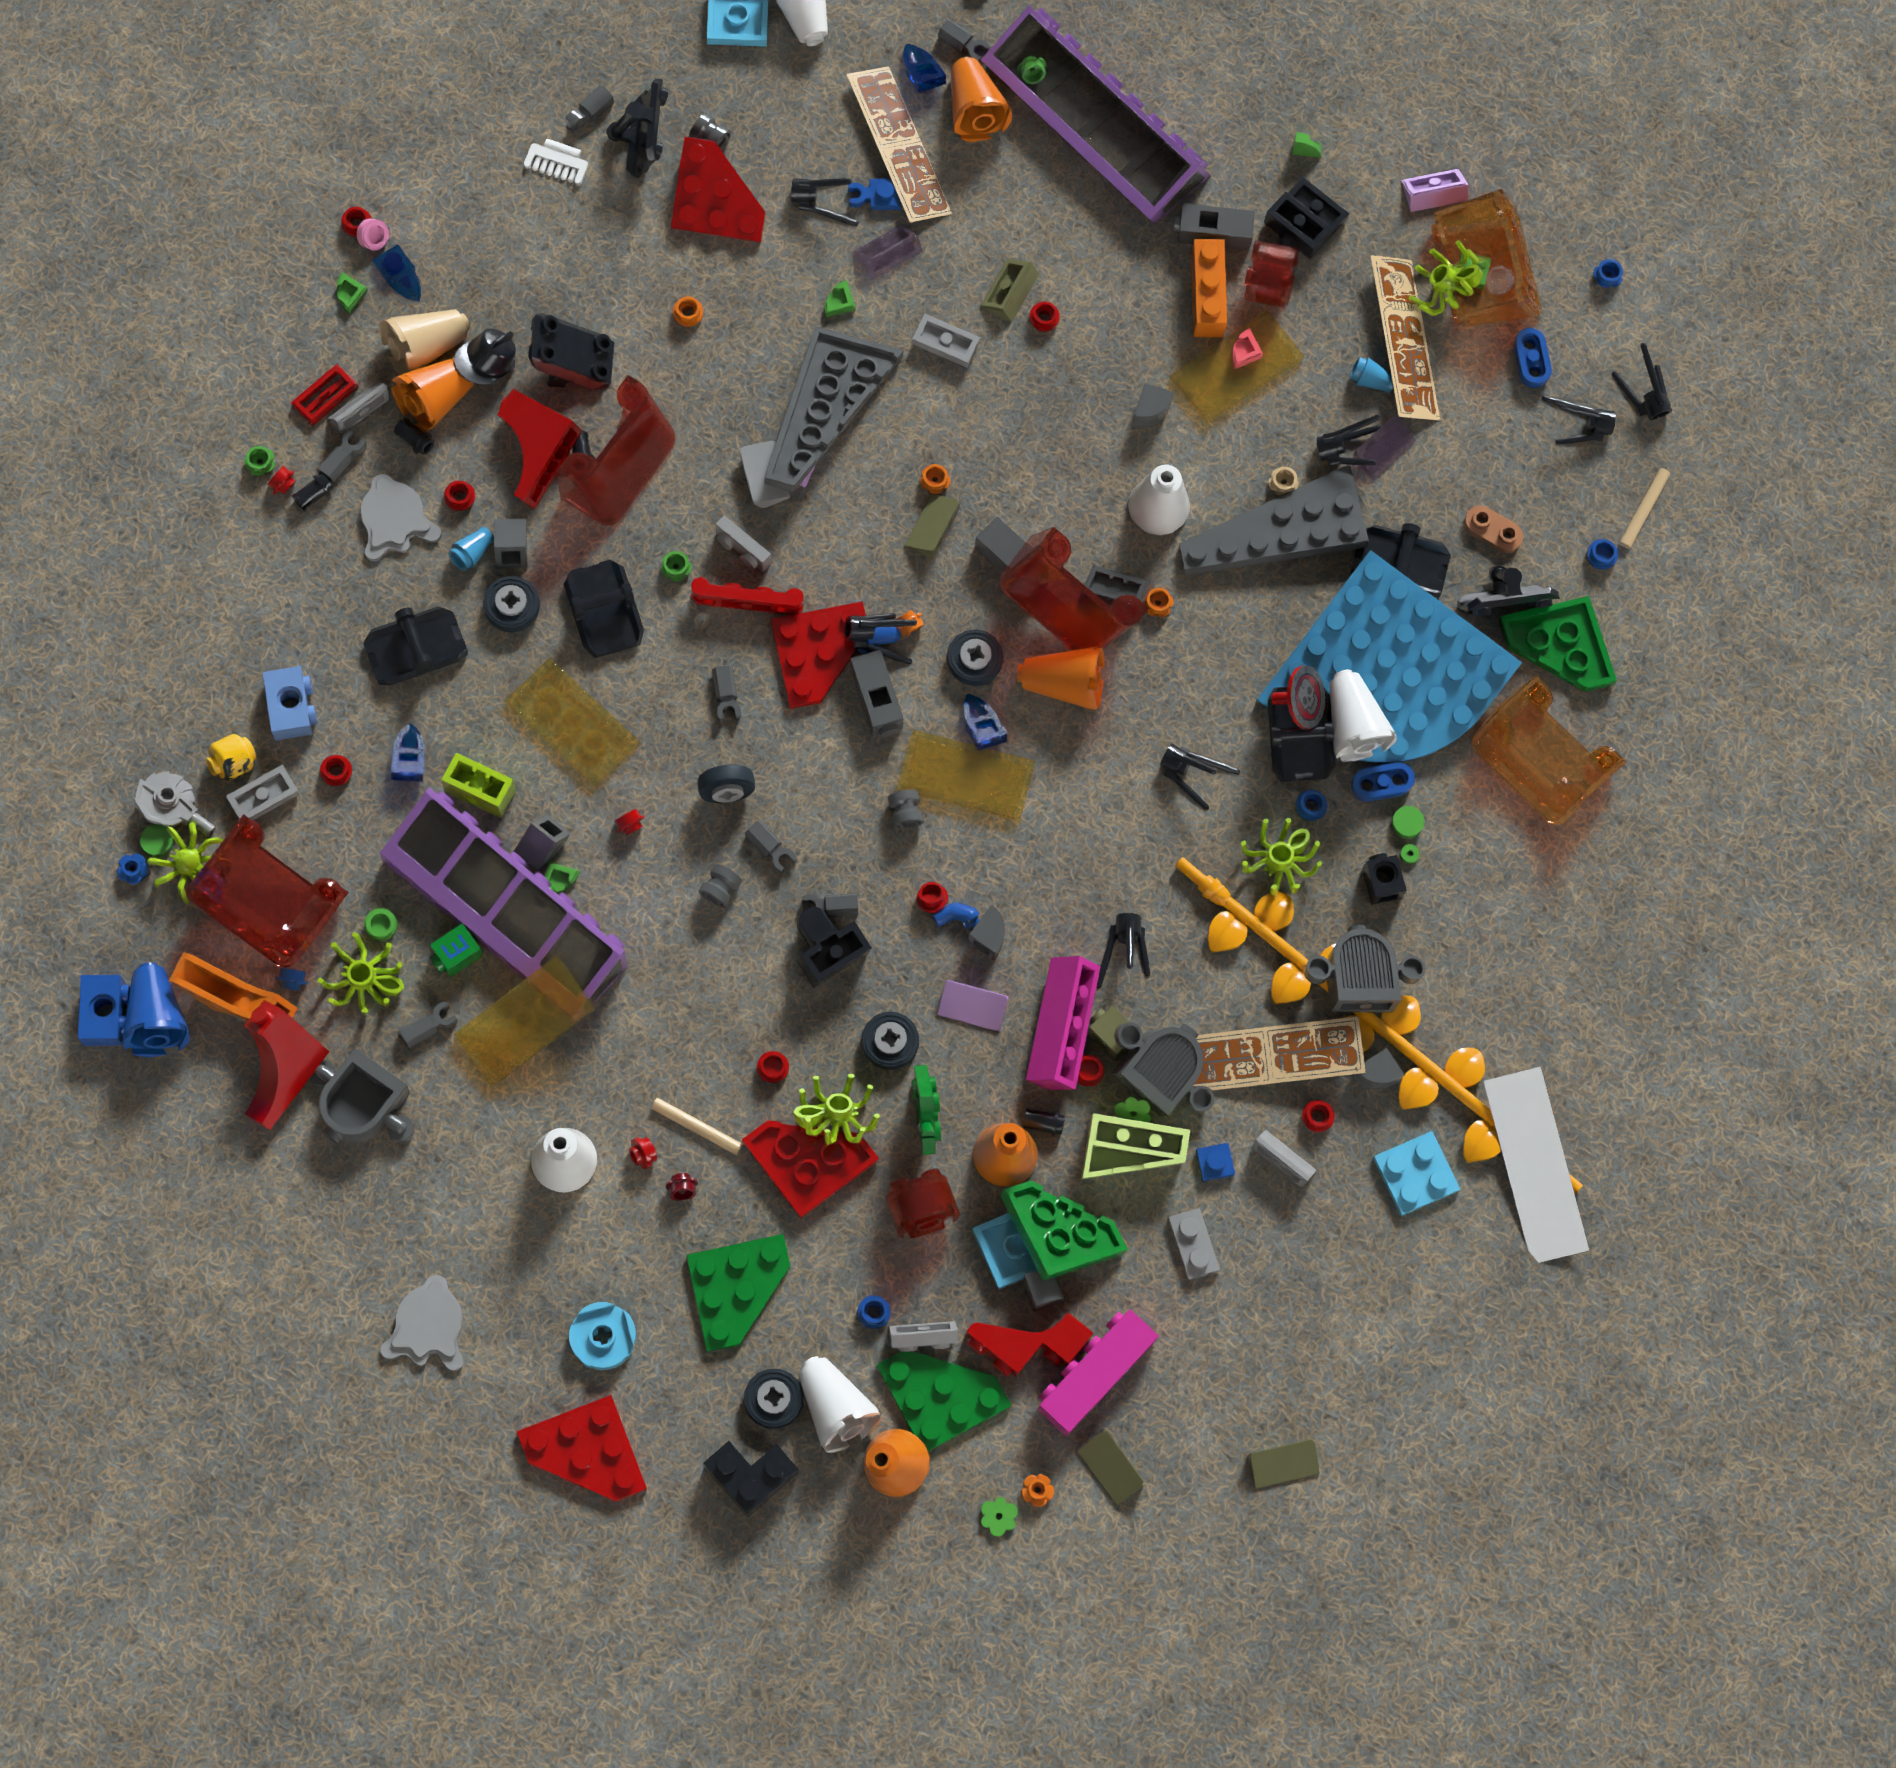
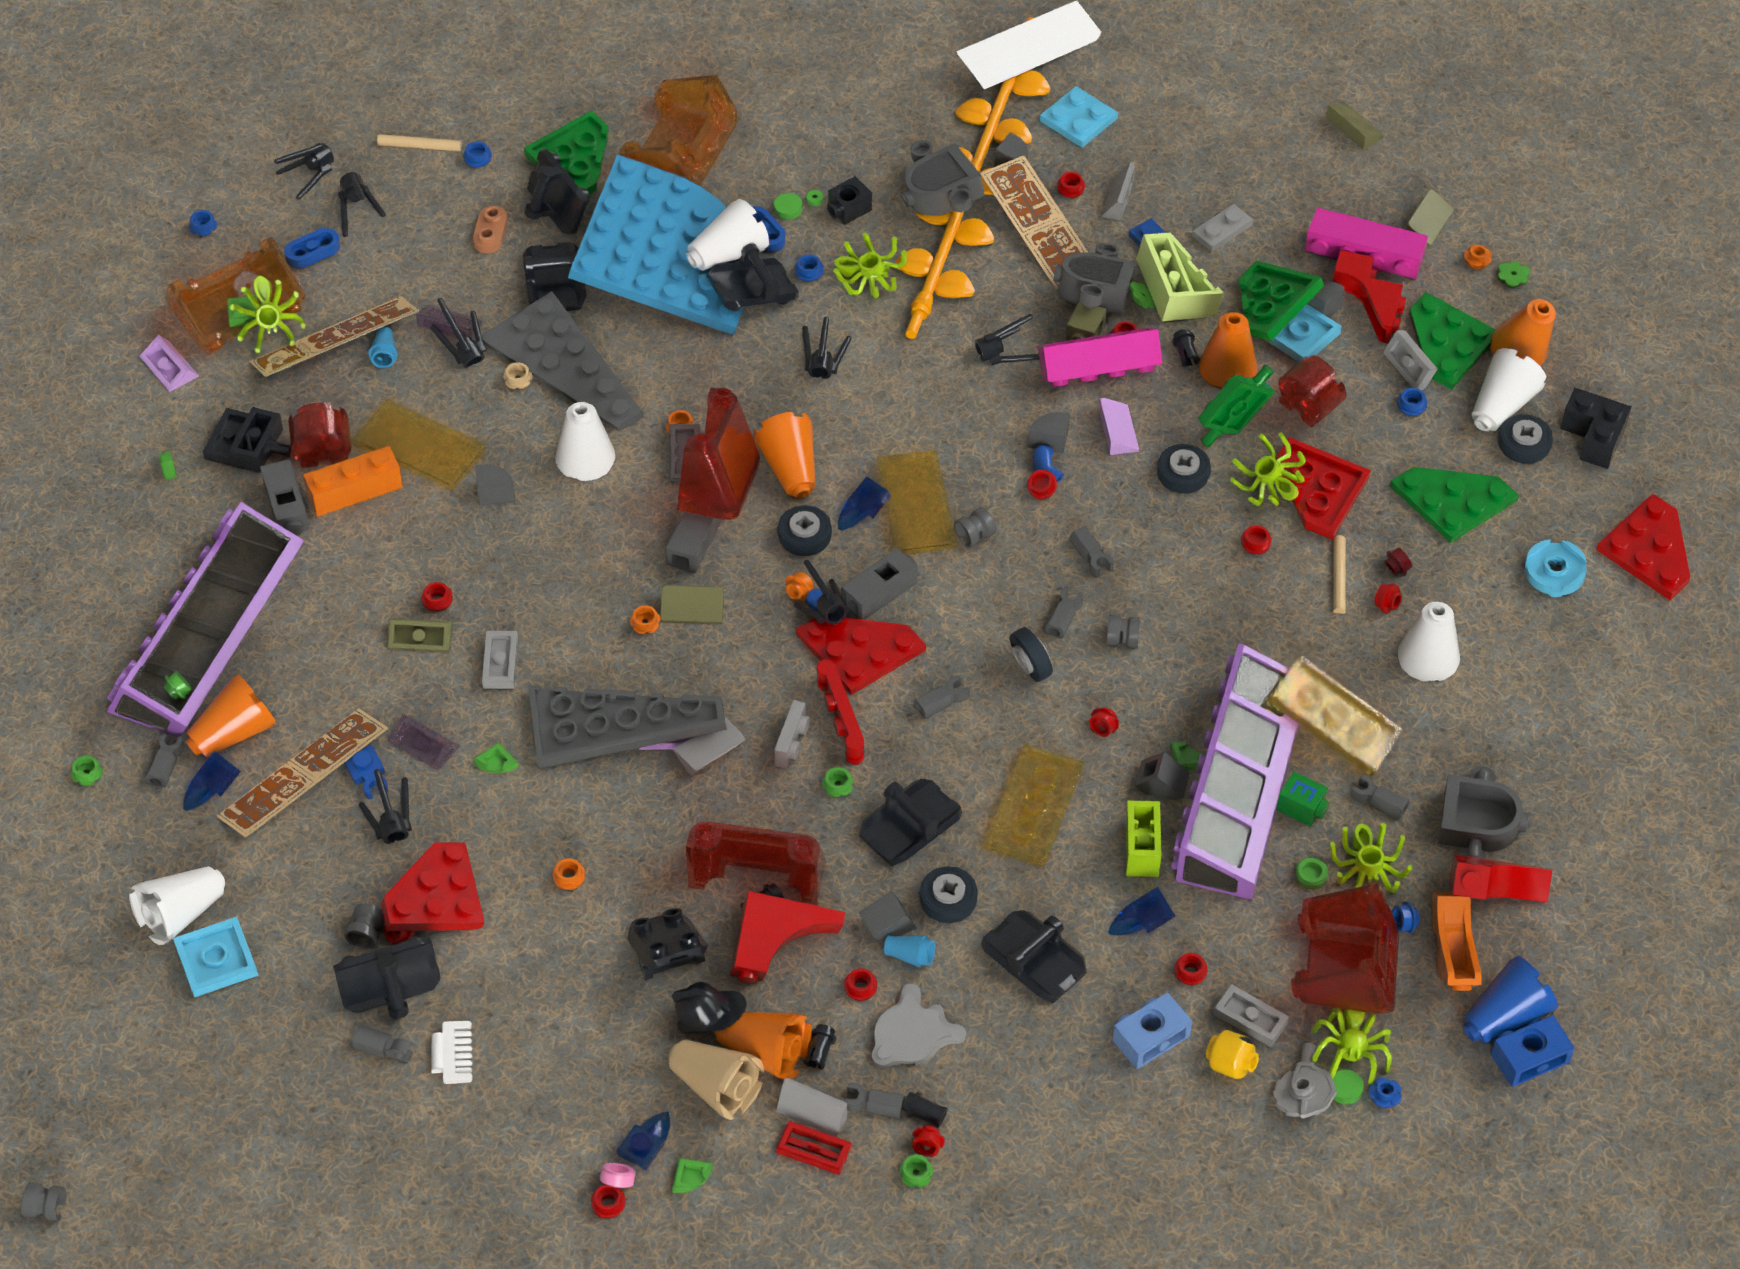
camera: 105 degrees left, 20 degrees down
(427, 1325) = (1630, 694): light grey tile -> none
(829, 948) = (1134, 526): black brick -> none
(1245, 350) = (403, 437): coral tile -> none
(1303, 696) = (737, 278): shield -> none

